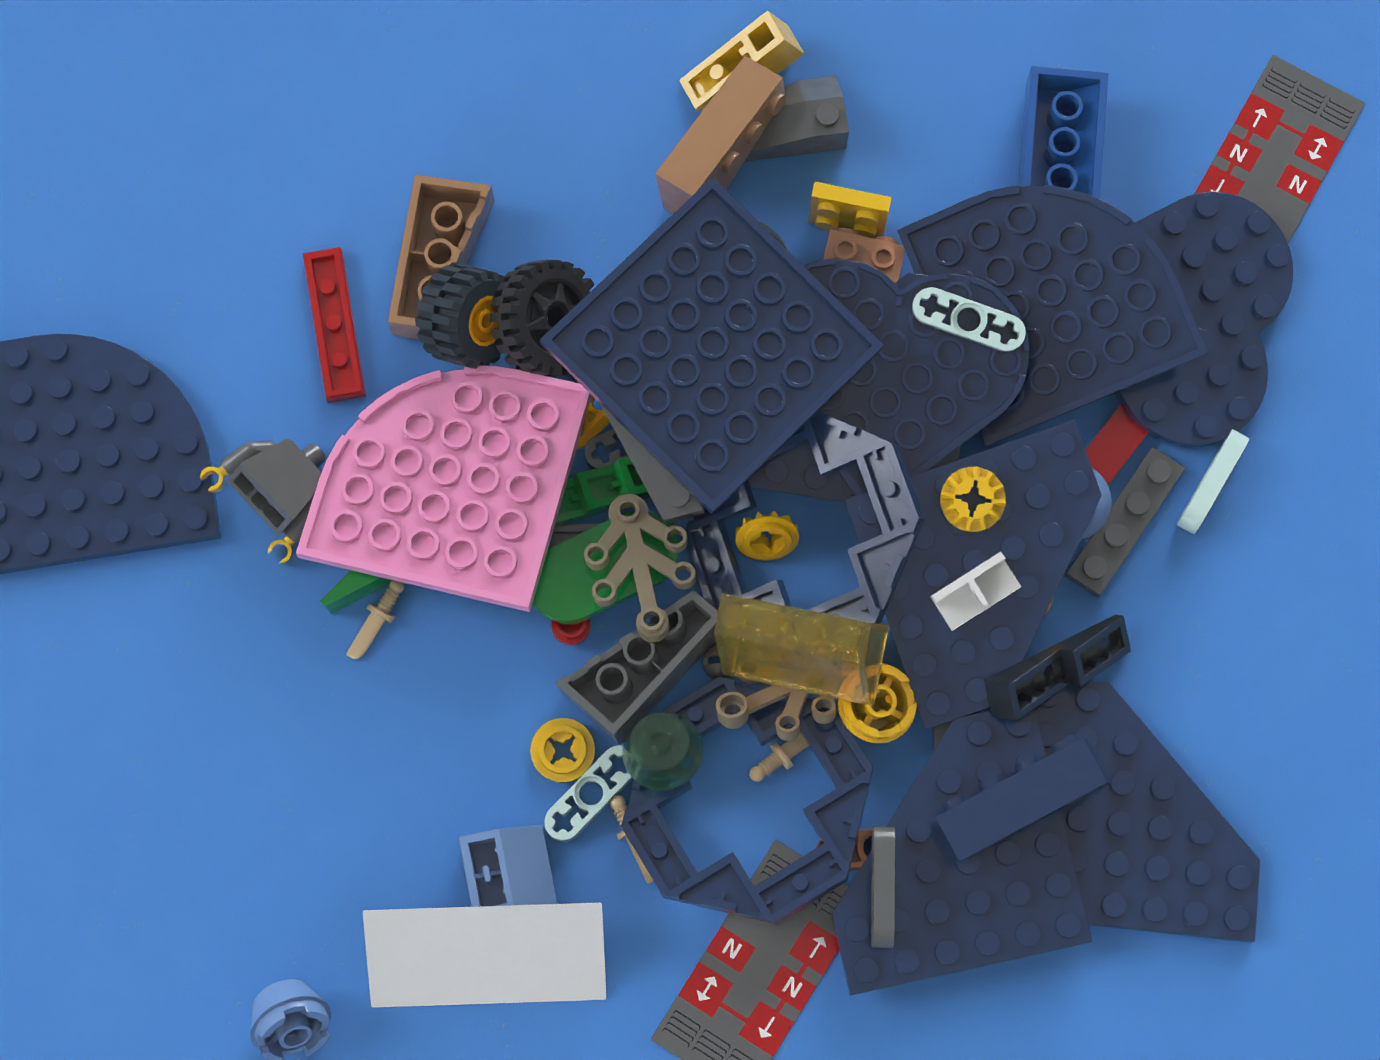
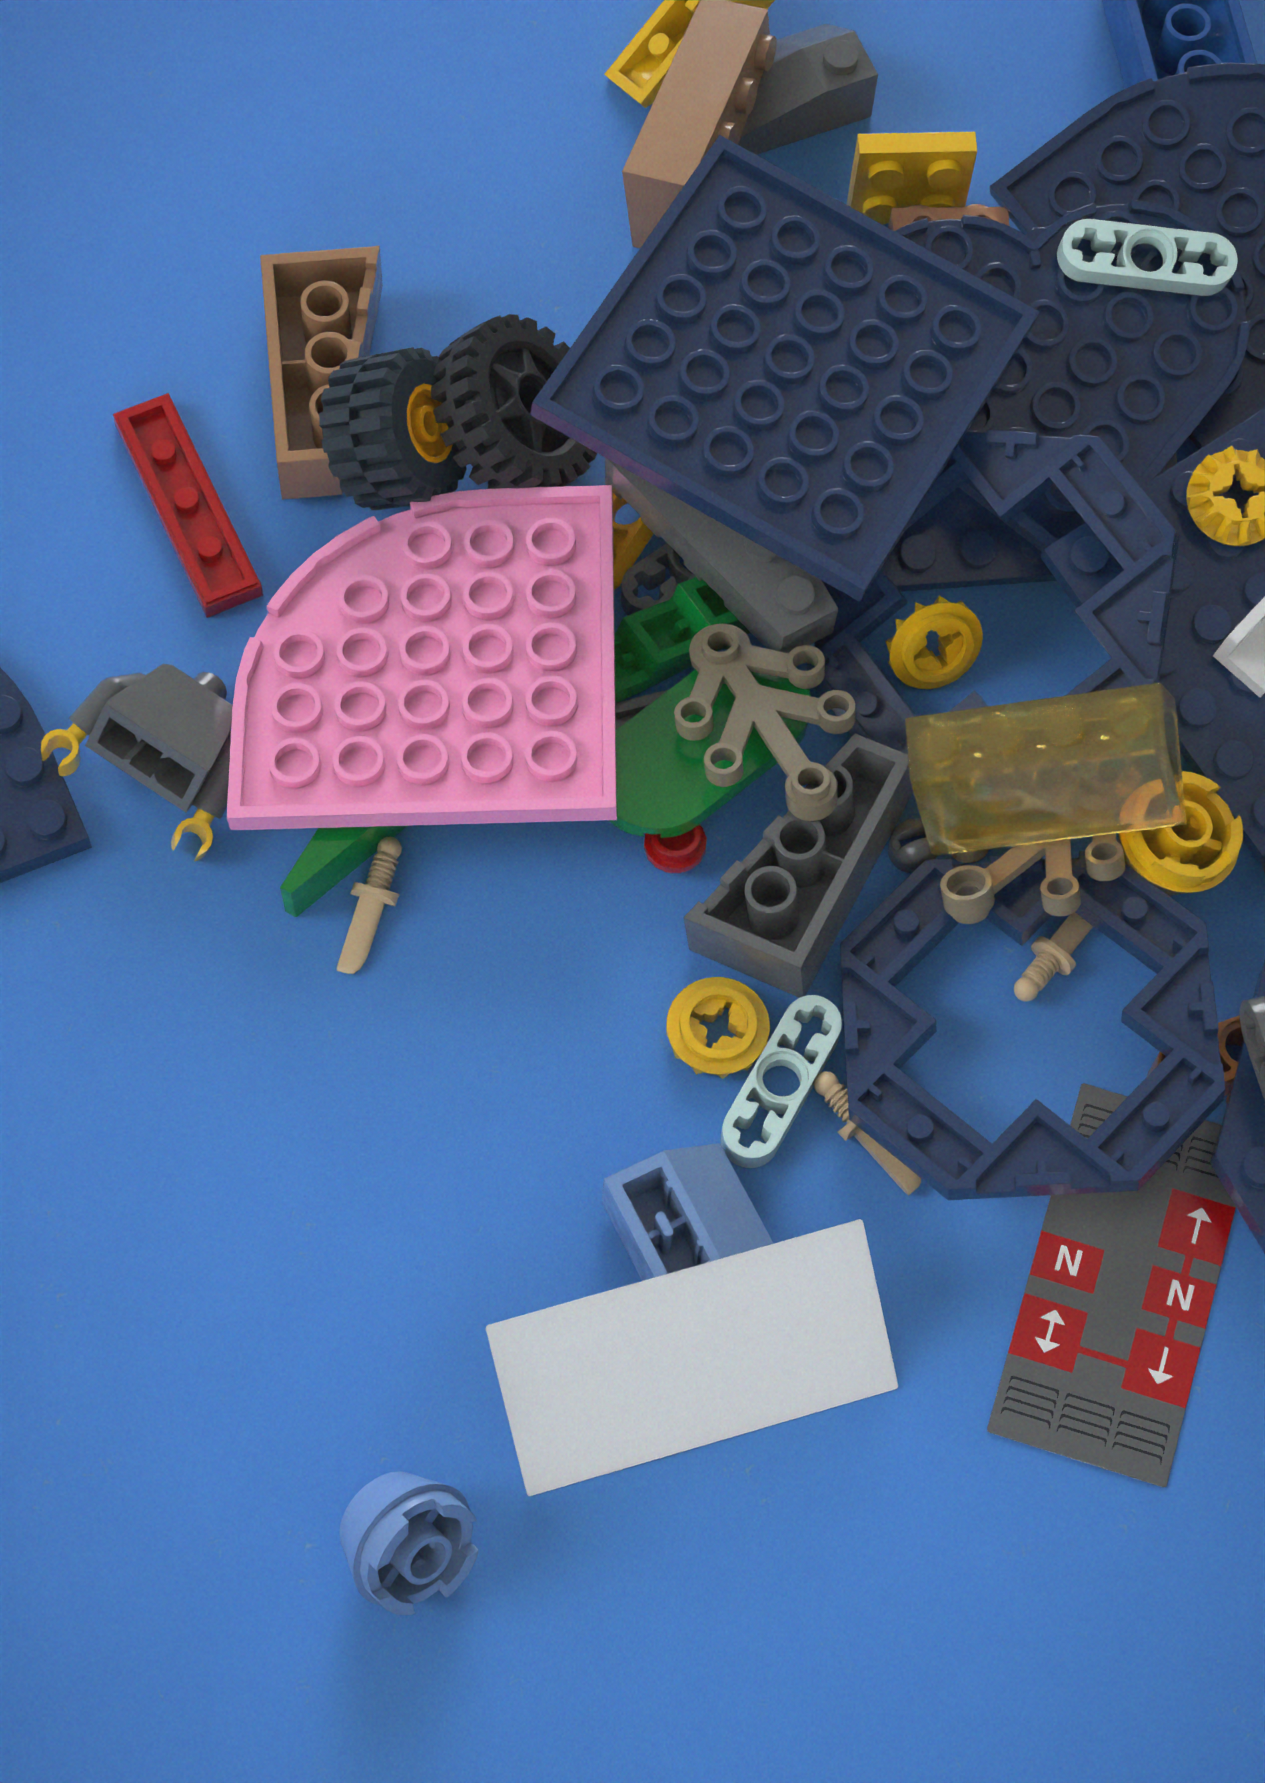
camera: 20 degrees left, 10 degrees down
(662, 750) = (879, 977): clear green cone -> none

